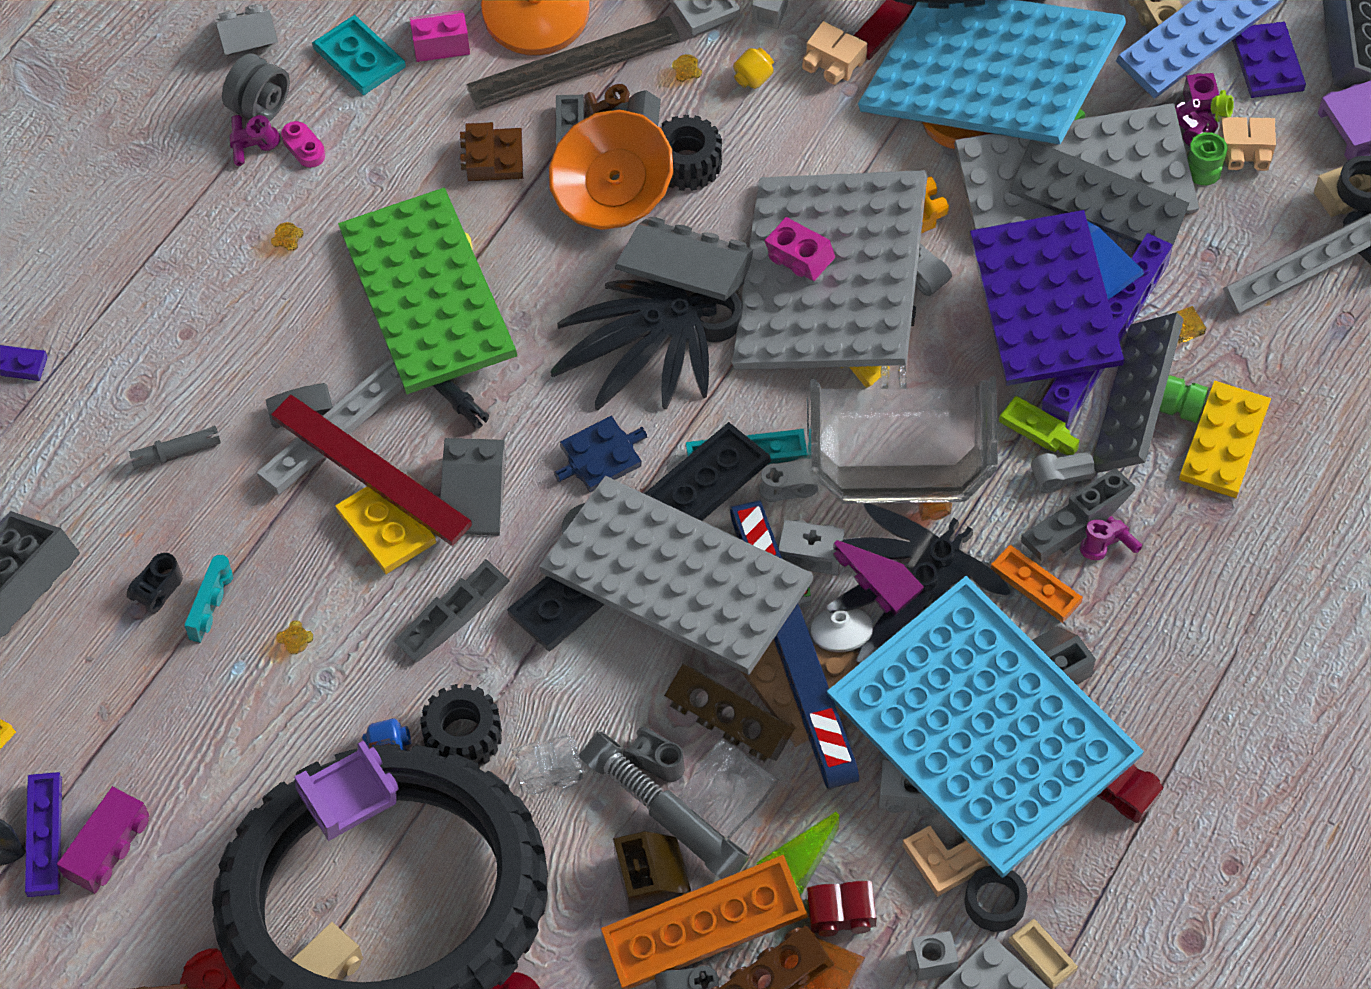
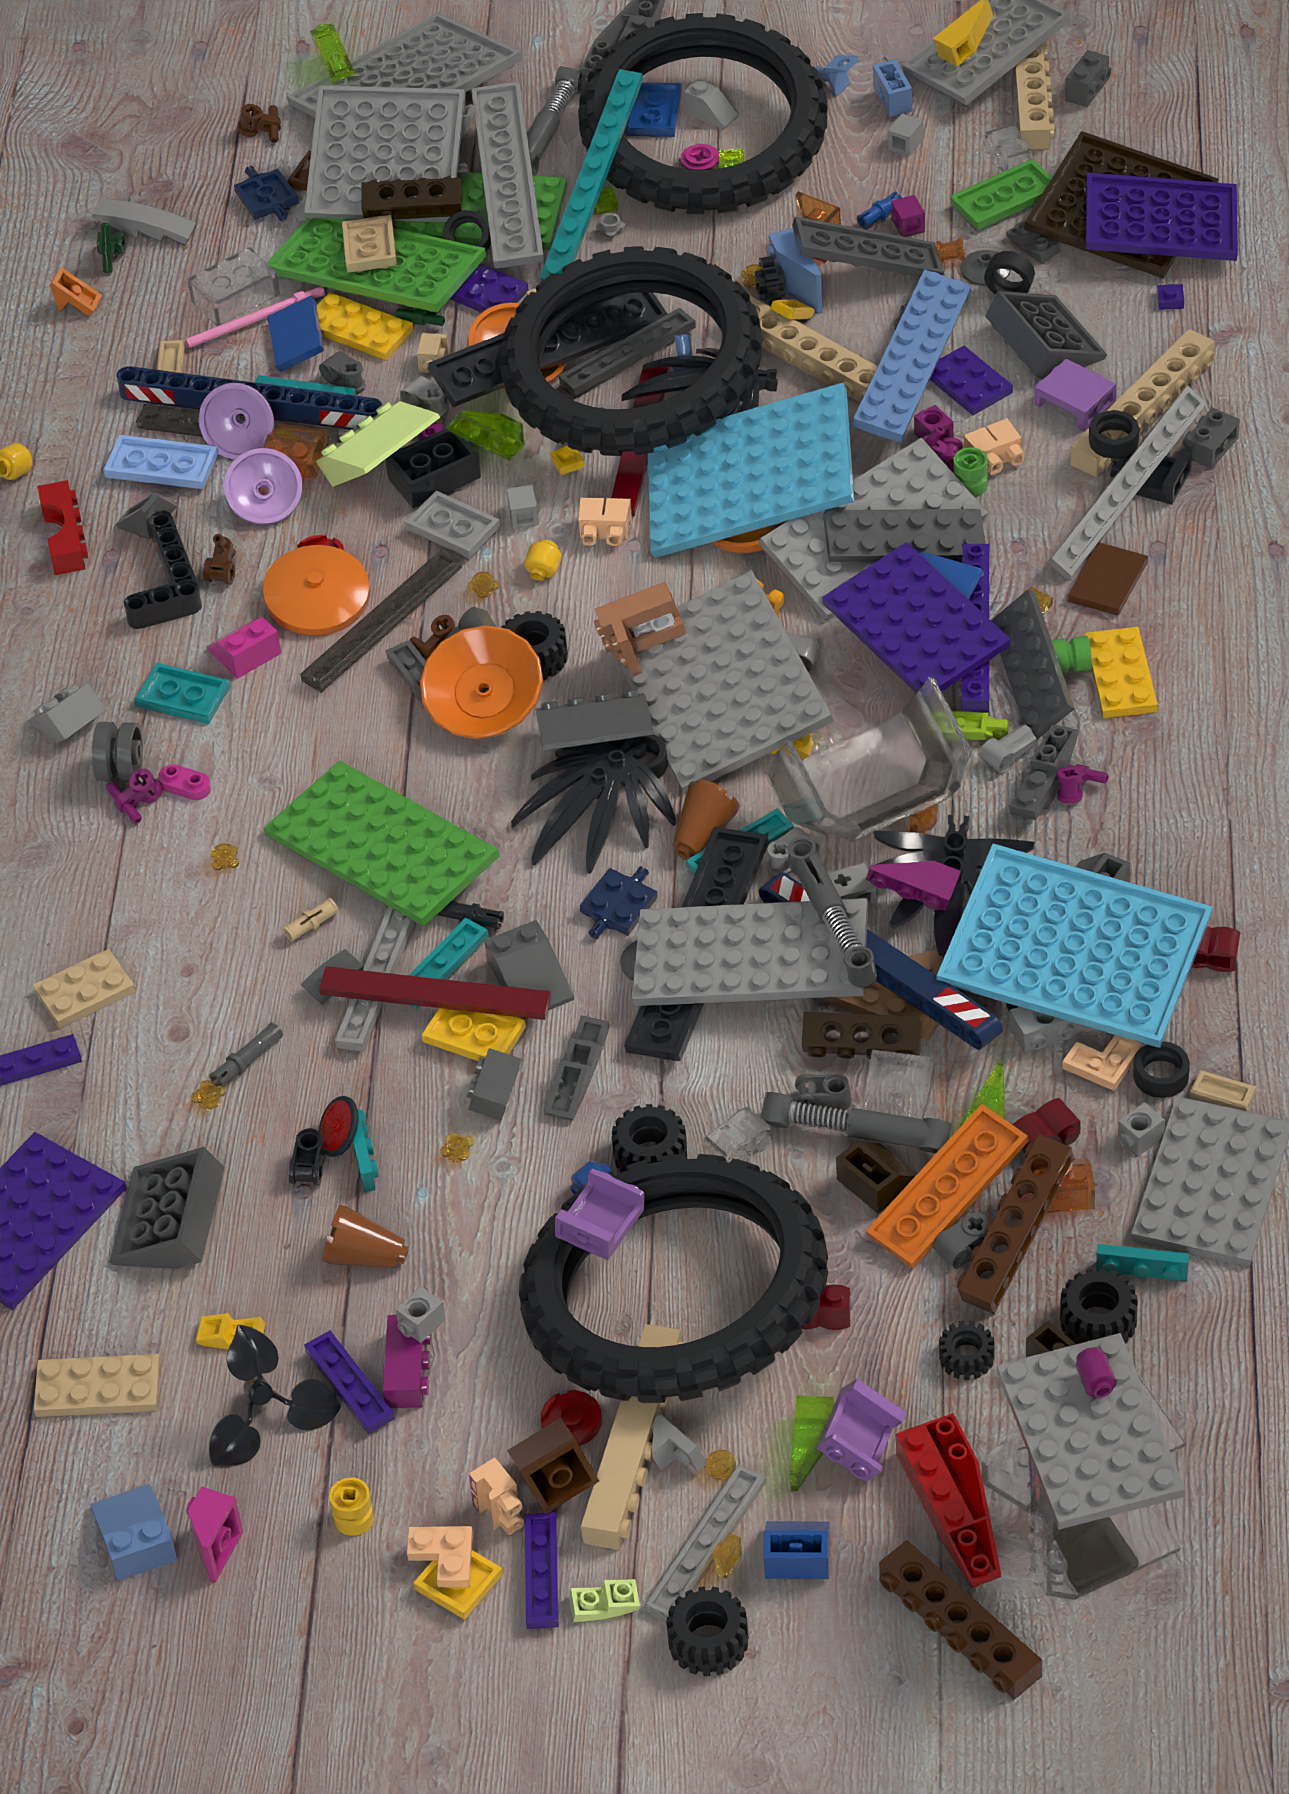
camera: 25 degrees left, 10 degrees down
(86, 309) = (84, 988): none -> tan plate
(121, 477) = (211, 1100): none -> clear yellow plate
(141, 814) = (426, 1306): none -> light grey brick
(142, 695) = (362, 1242): none -> dark orange cone
(200, 564) = (339, 1125): none -> red wheel
(318, 337) = (310, 920): none -> tan pin
(364, 590) = (495, 1083): none -> dark grey brick
(414, 433) = (452, 951): none -> teal plate
(491, 152) = (359, 718): reddish brown plate -> none
(727, 401) = (702, 810): none -> dark orange cone
(764, 573) = (831, 910): none -> dark grey piece
(785, 178) = (638, 624): none -> nougat brick
(799, 249) = (686, 672): dark pink brick -> none
(841, 630) = (912, 937): white dish -> none
(1036, 583) = (1047, 838): orange plate -> none
(1222, 105) = (959, 426): lime plate -> none
(1274, 332) = (1108, 578): none -> reddish brown tile

